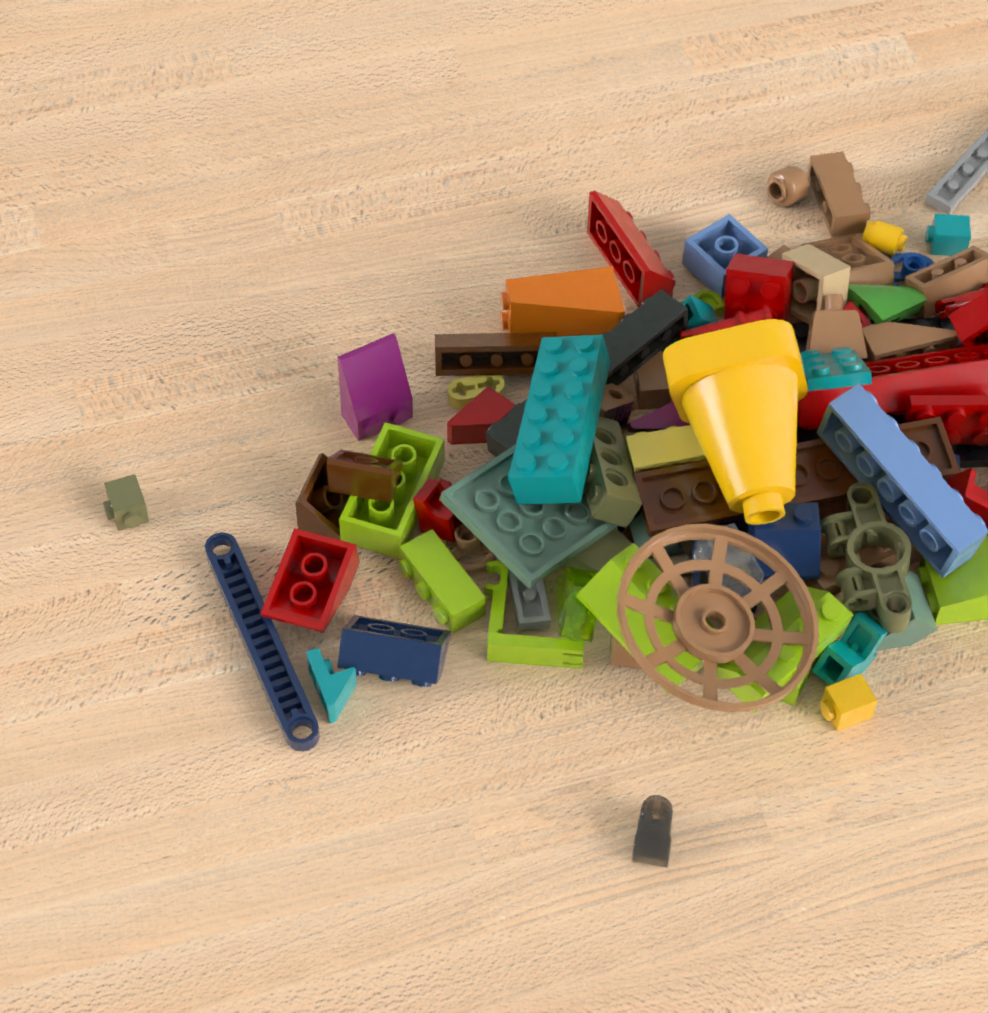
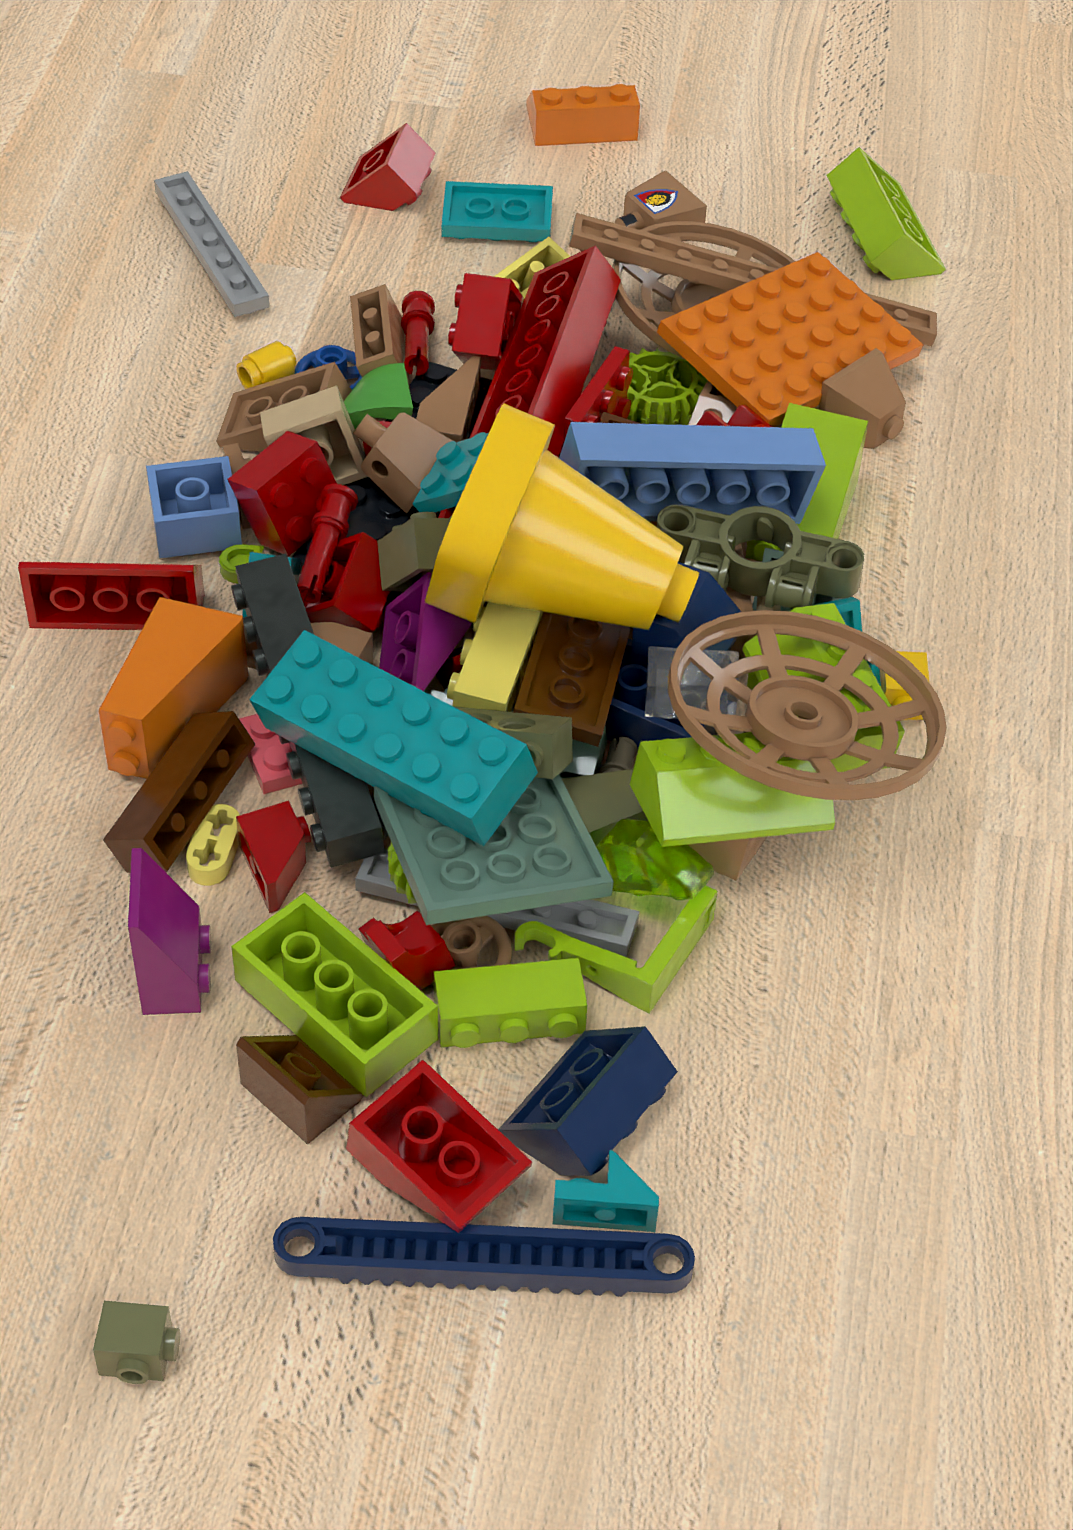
camera: 65 degrees left, 5 degrees down
(363, 475) = (318, 996): reddish brown slope -> none
(652, 835) = (1002, 942): clear smoke piece -> none
(788, 186) = (123, 410): medium nougat head -> none
(838, 194) = (170, 375): medium nougat brick -> none
(948, 234) = (305, 315): teal brick -> none

